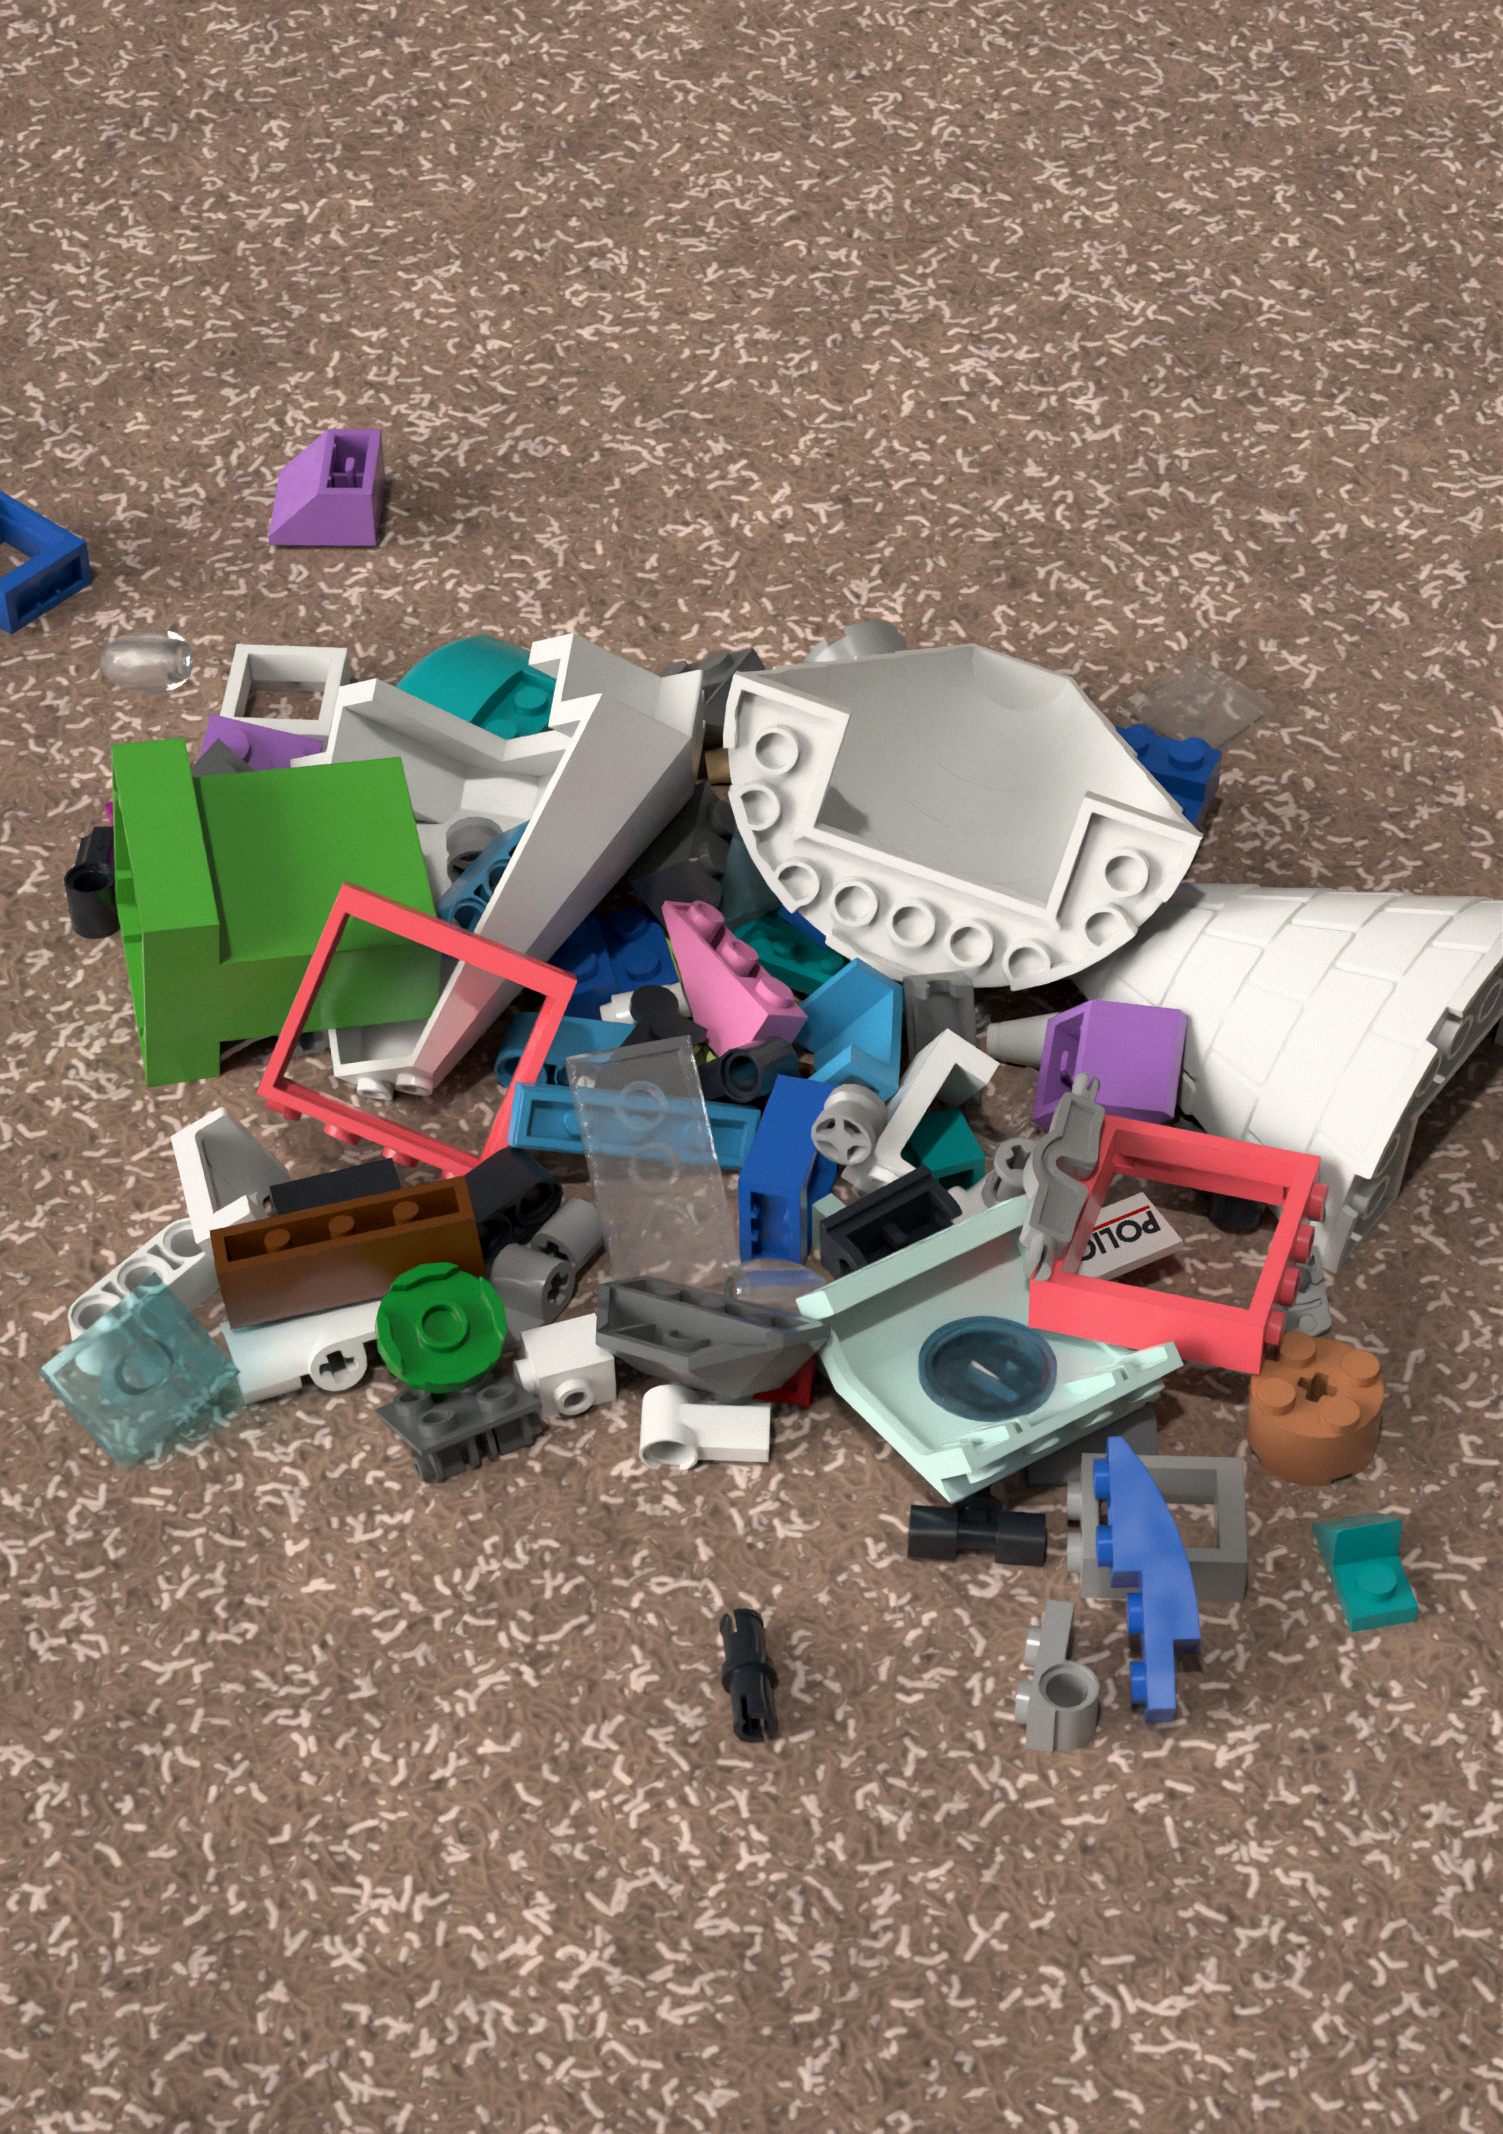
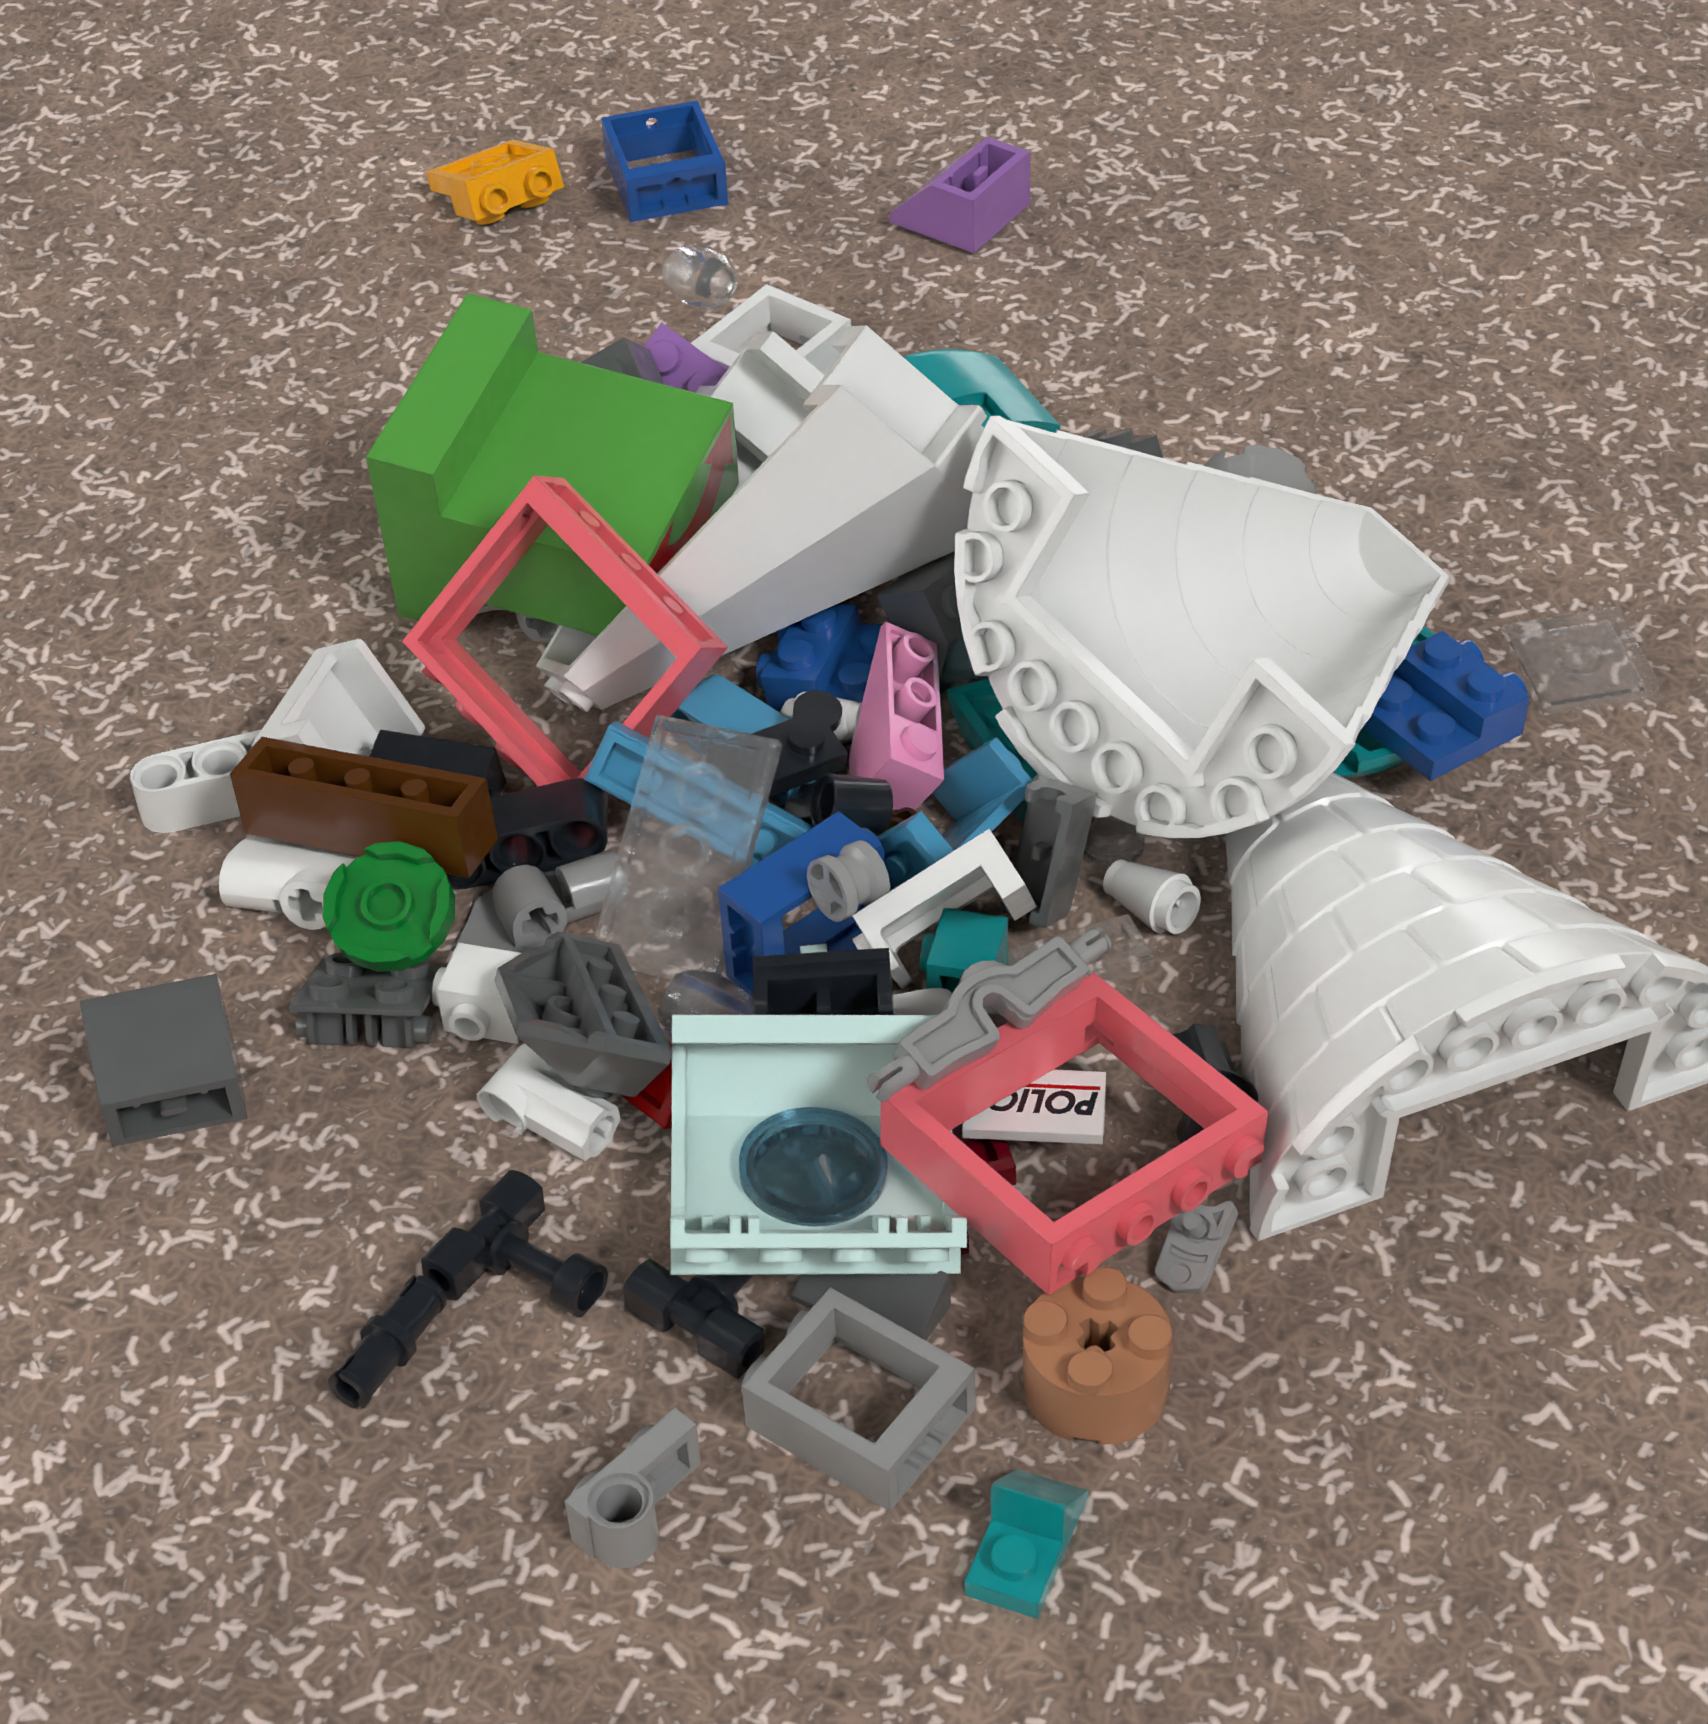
camera: 35 degrees right, 0 degrees up
(138, 1371) = (140, 834): clear light blue slope -> none
(355, 1547) = (163, 1059): none -> dark grey slope
(762, 1556) = (502, 1241): none -> black bar
(1126, 1046) = (1175, 942): medium lavender slope -> none
(1146, 1553) = (786, 1407): slope -> none

